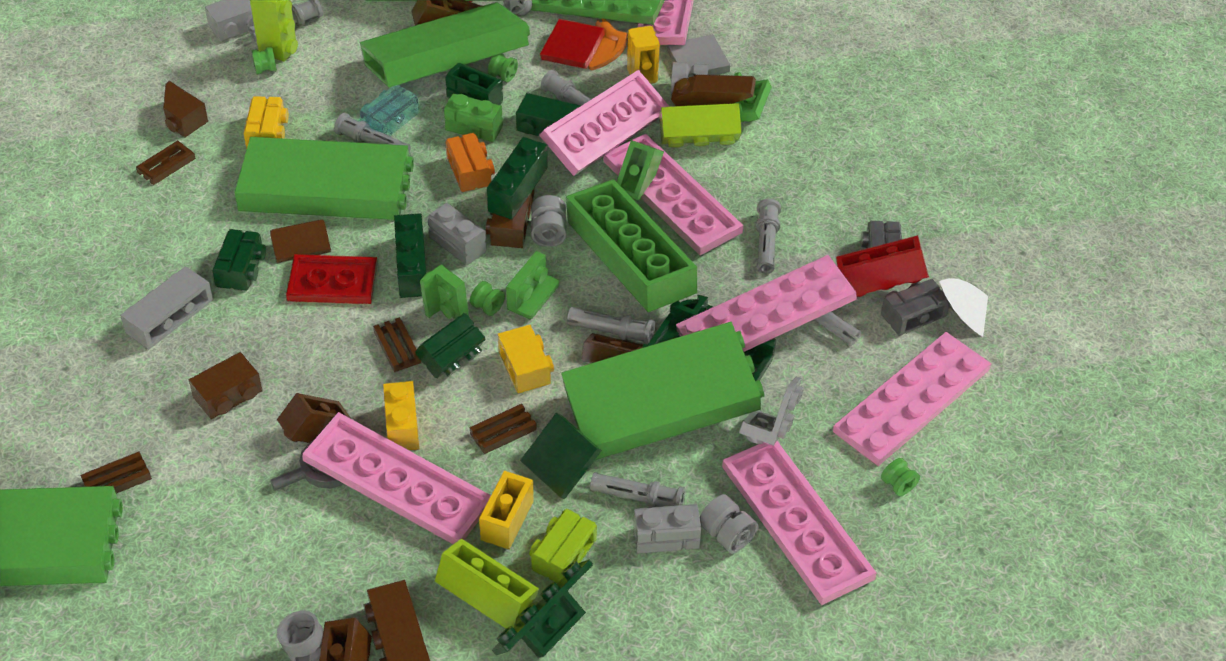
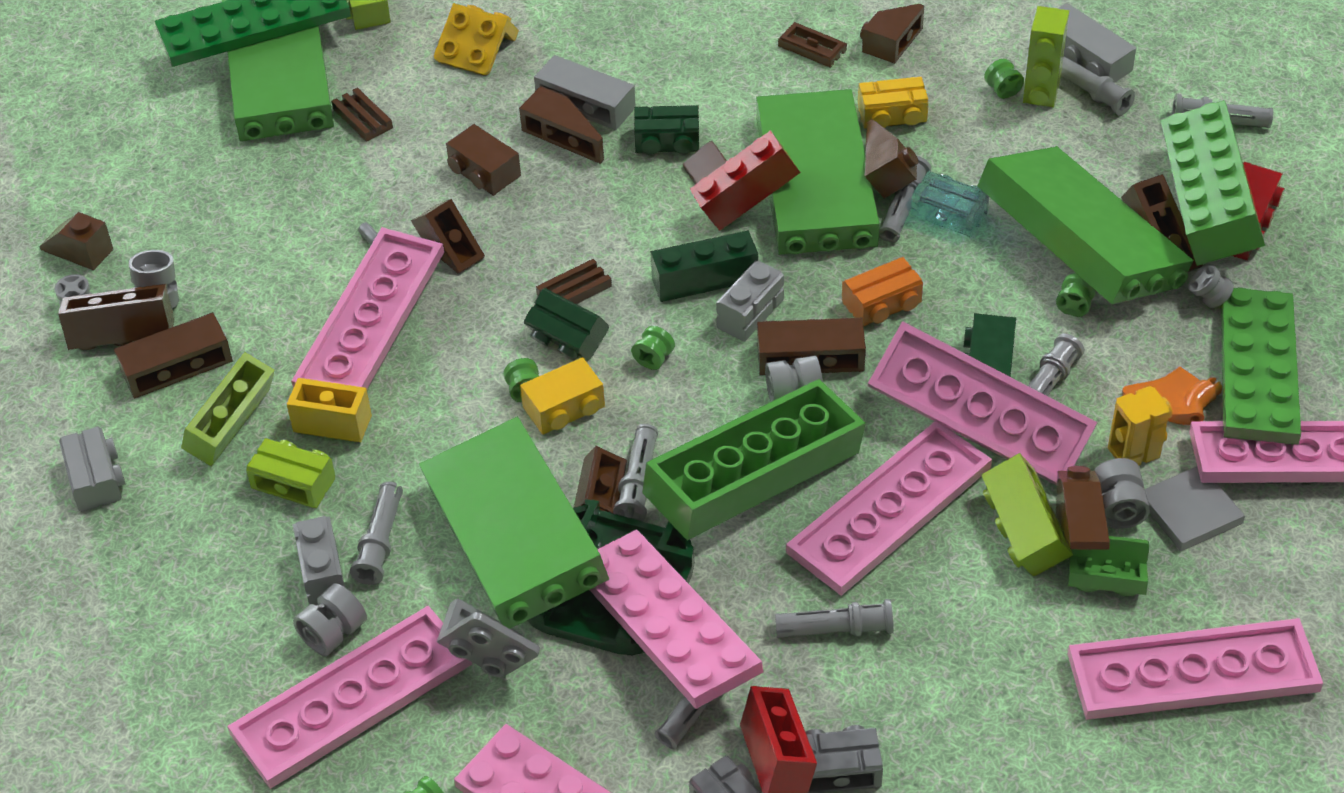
camera: 85 degrees right, 0 degrees up
(55, 379) = (473, 38): none -> yellow bracket
(202, 326) = (559, 122): none -> reddish brown slope
(332, 279) = (663, 212): red tile -> none
(338, 208) = (744, 180): none -> red brick
(339, 126) = (887, 161): none -> reddish brown slope
(401, 414) = (457, 302): yellow brick -> none
(443, 292) = (635, 301): bright green bracket -> none
(473, 84) = (1012, 269): dark green brick -> none
(474, 116) = (962, 280): bright green brick -> none
(499, 382) = (517, 373): none -> bright green wheel
(500, 426) = (453, 408): reddish brown tile -> none
(517, 178) = (830, 322): dark green brick -> none
(530, 287) = (676, 381): bright green bracket -> none
(550, 619) = (190, 472): dark green bracket -> none
(560, 455) = (413, 446): dark green tile -> none
(572, 43) = (1154, 359): red tile -> none
(639, 168) = (901, 449): bright green slope -> none
(828, 82) = (1194, 668): none -> bright pink plate

